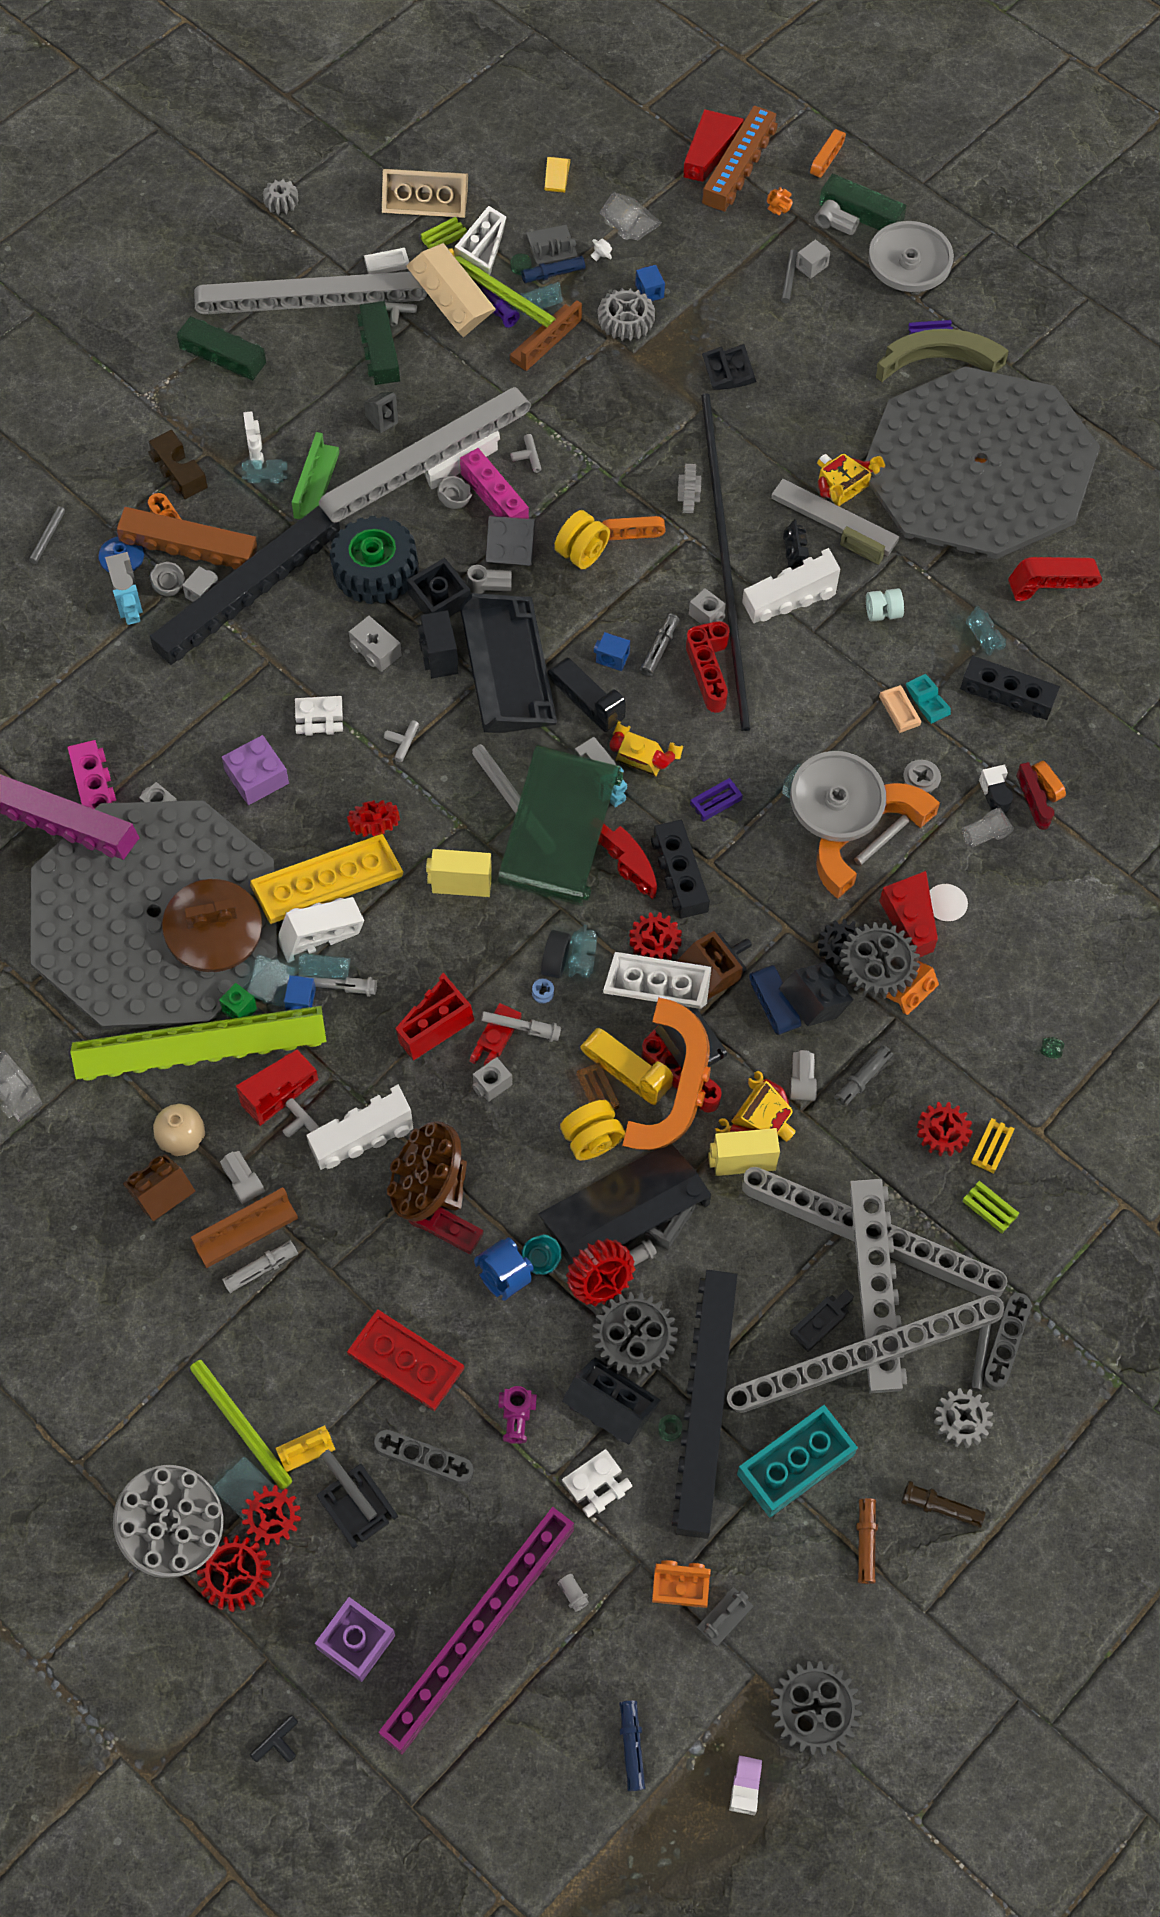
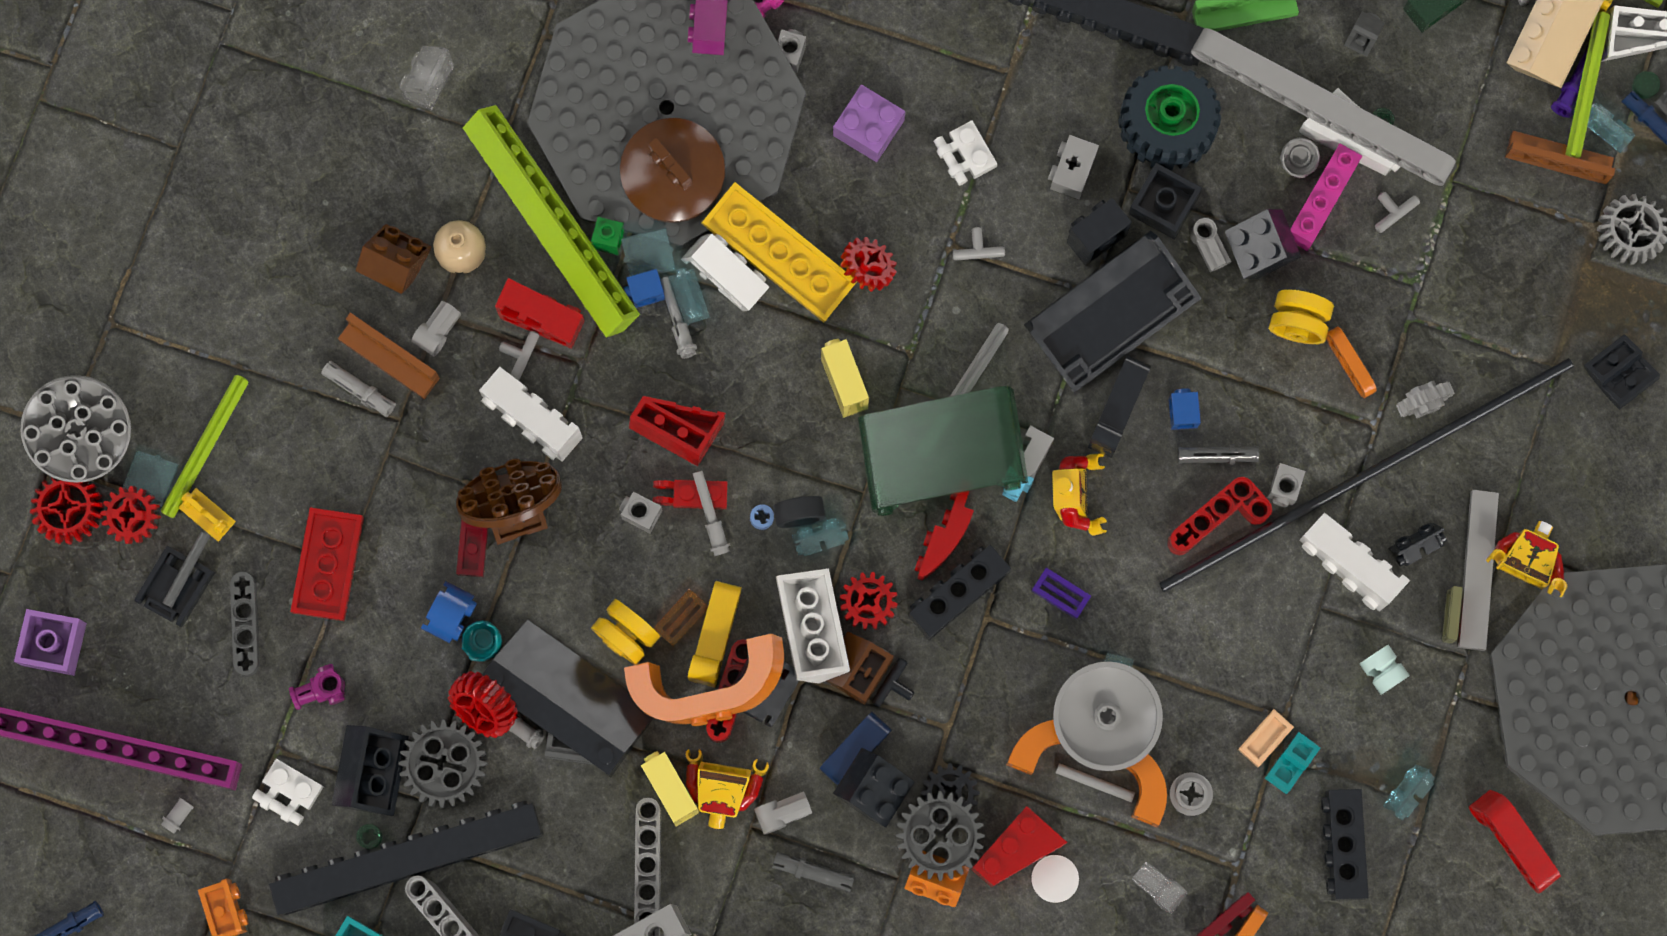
camera: 65 degrees right, 15 degrees up
(995, 789) = (1204, 883): leg -> none

